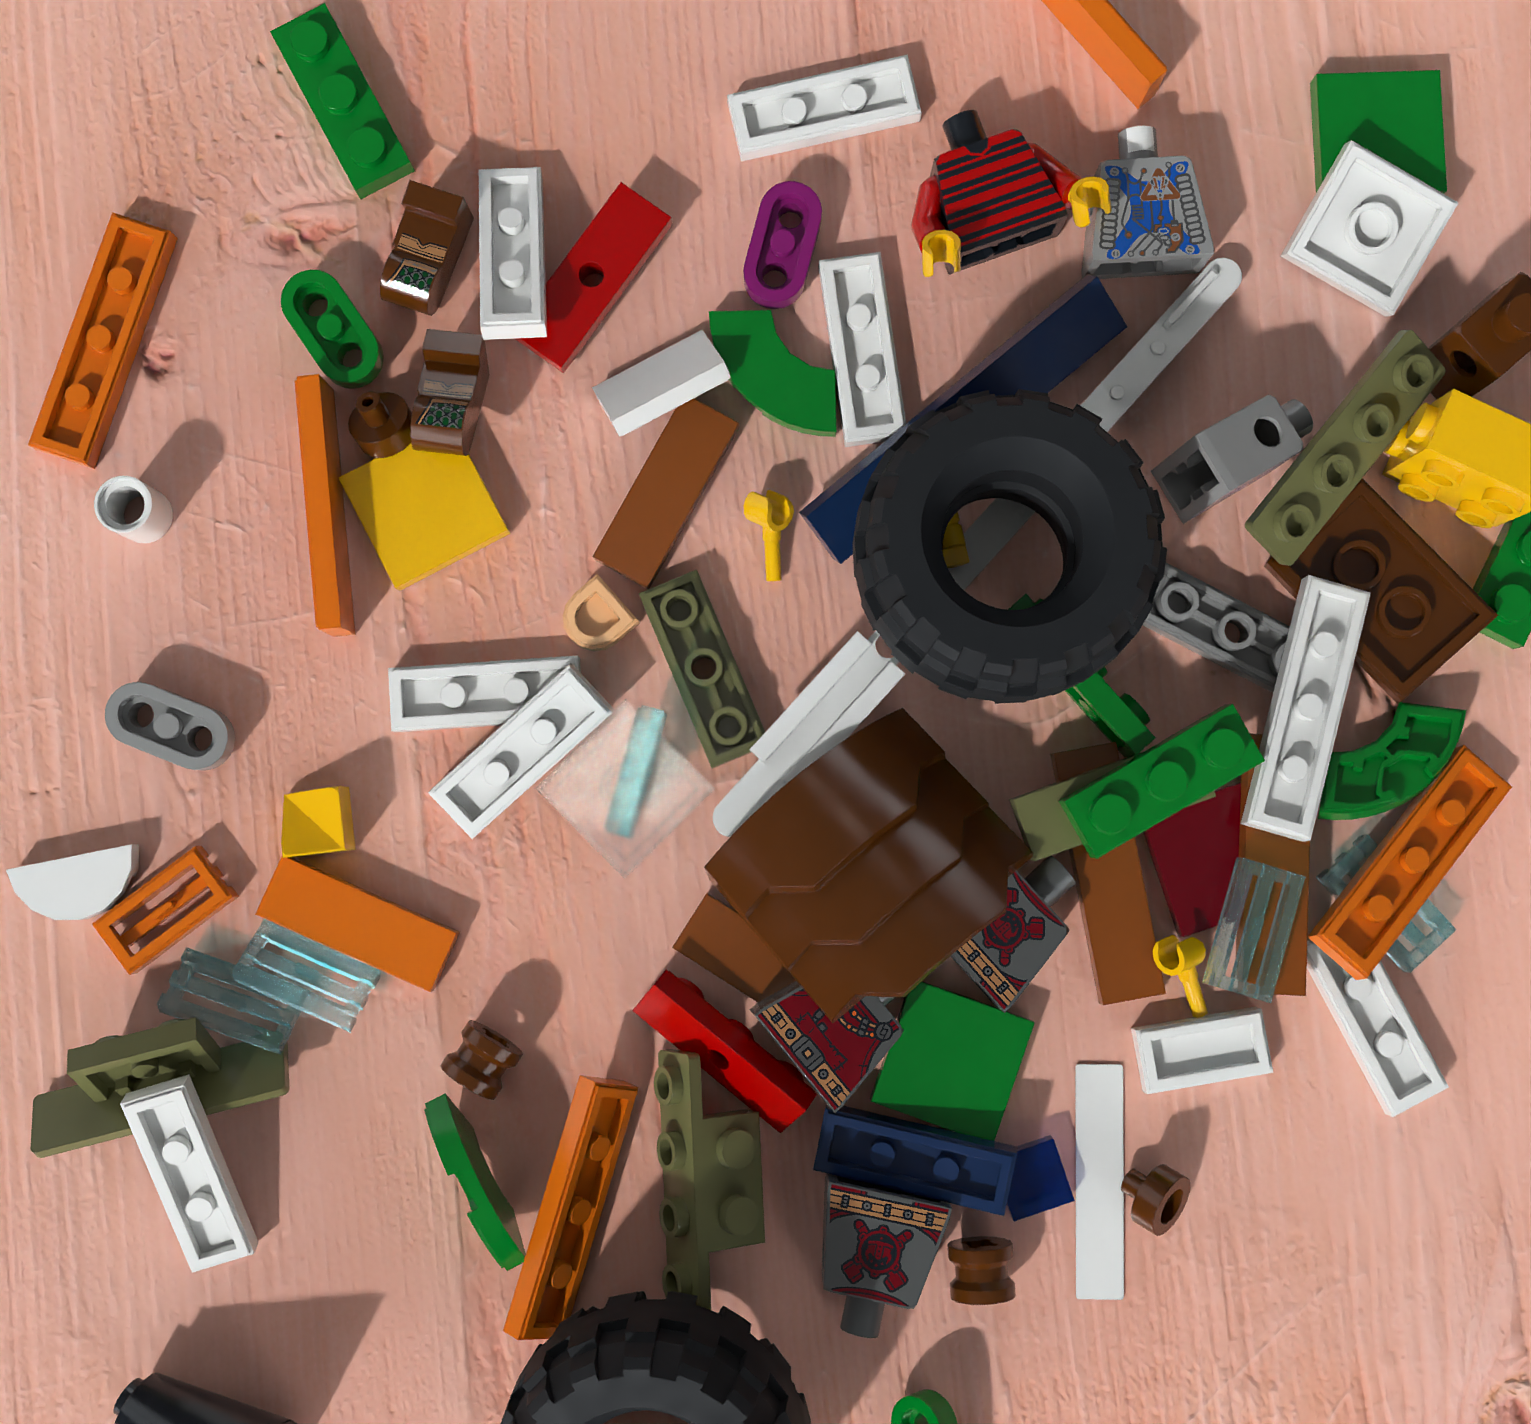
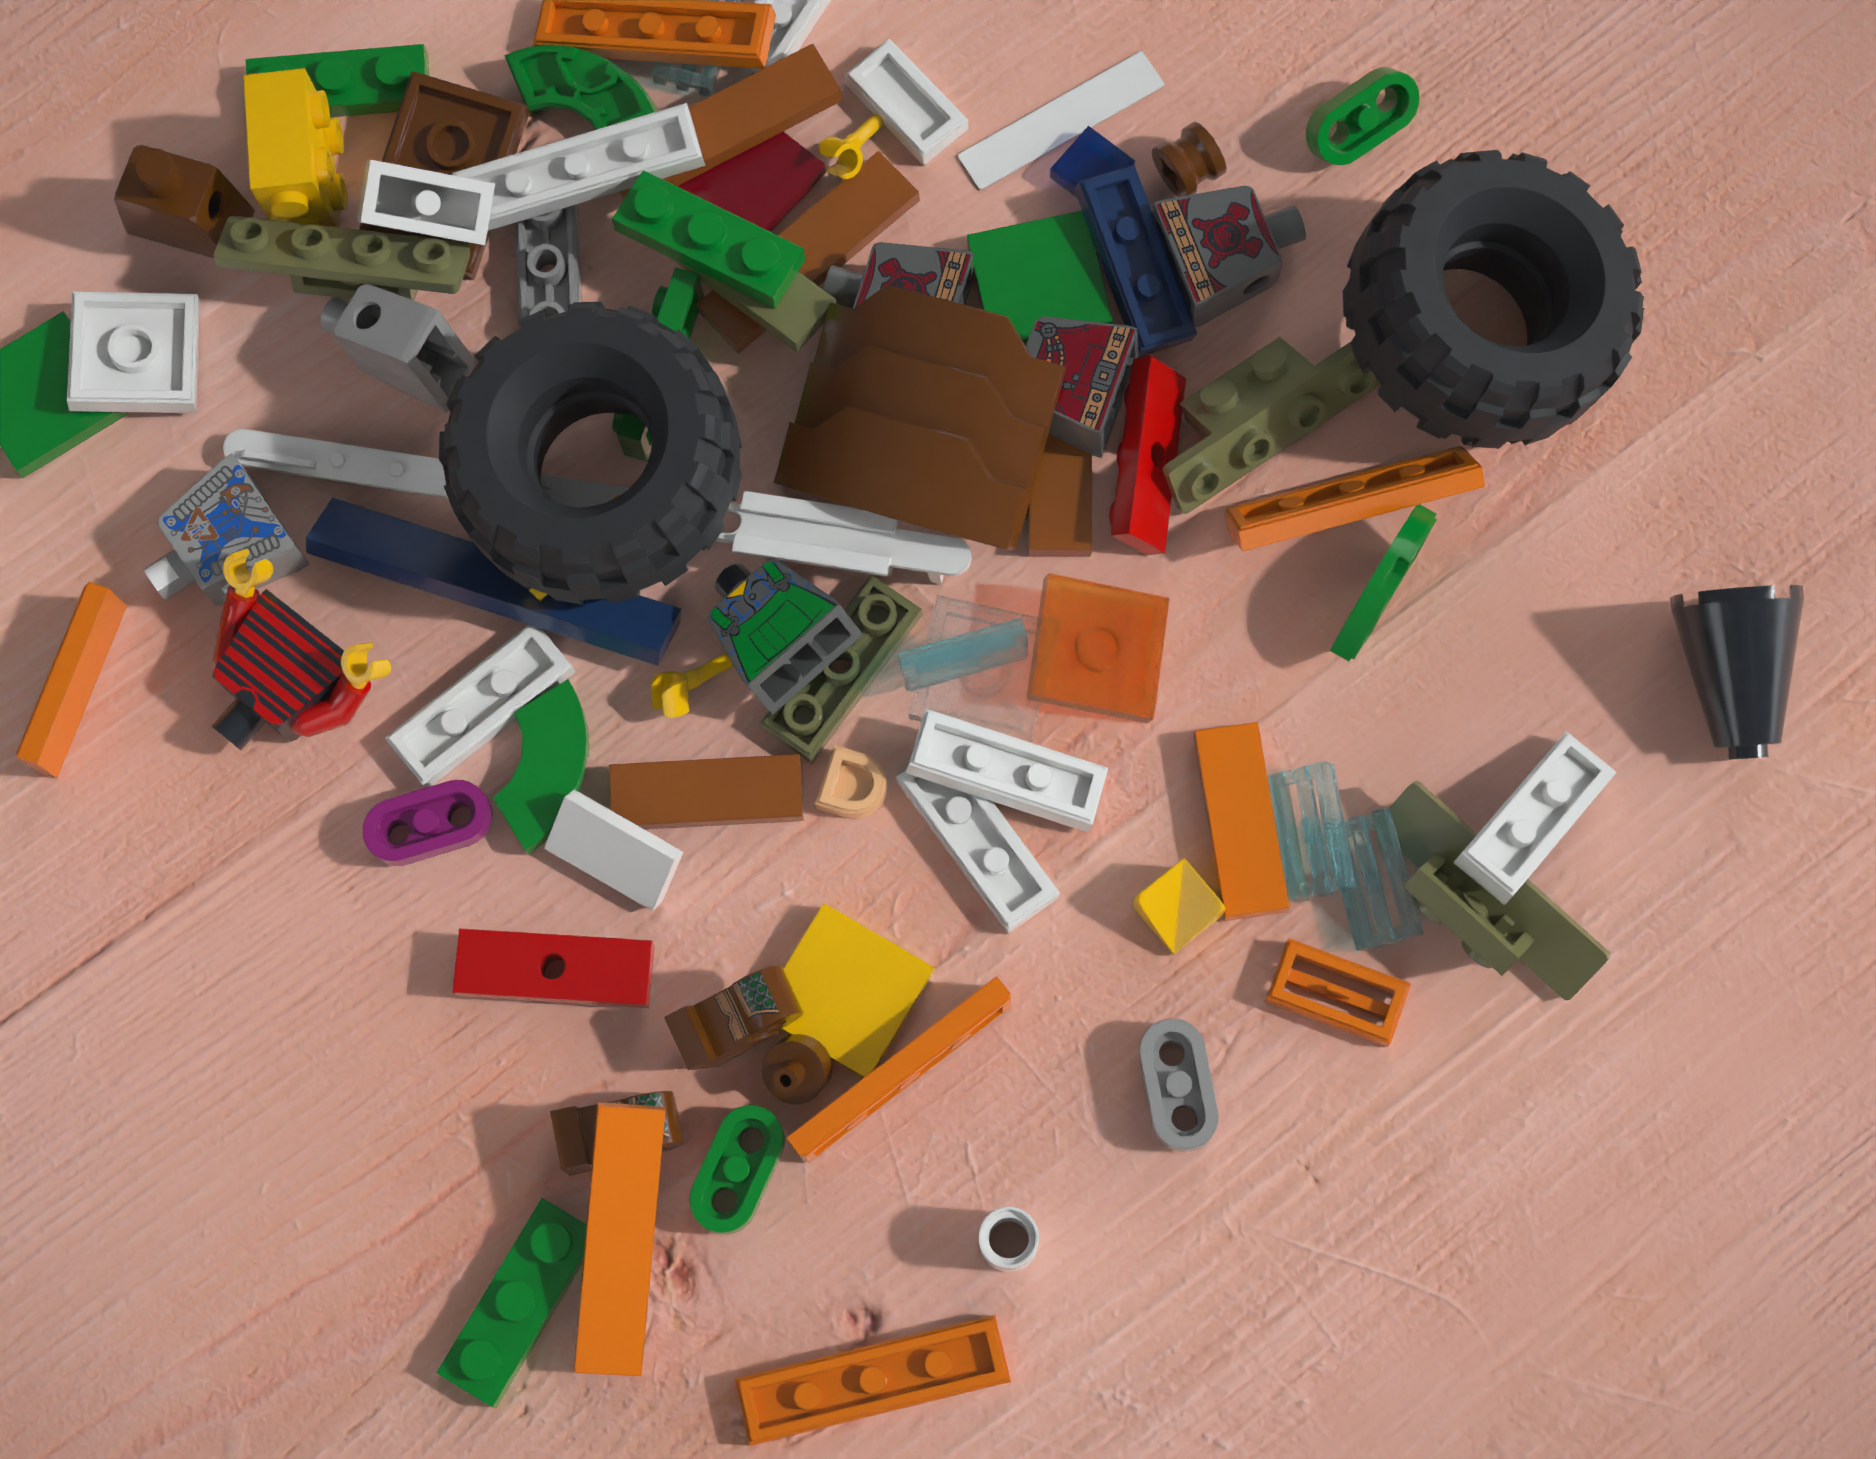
camera: 115 degrees left, 10 degrees down
(77, 884) = (1366, 1081): white tile -> none
(330, 198) = (619, 1239): none -> orange tile
(481, 1060) = (1284, 642): reddish brown wheel -> none
(512, 253) = (573, 1046): white tile -> none
(579, 896) = (1098, 648): none -> clear orange tile
(762, 626) = (778, 629): none -> torso
(824, 108) = (279, 868): white tile -> none
(1157, 1197) = (1044, 66): reddish brown tile -> none
(1229, 924) = (788, 116): clear light blue tile -> none
(1352, 545) = (425, 202): none -> white slope

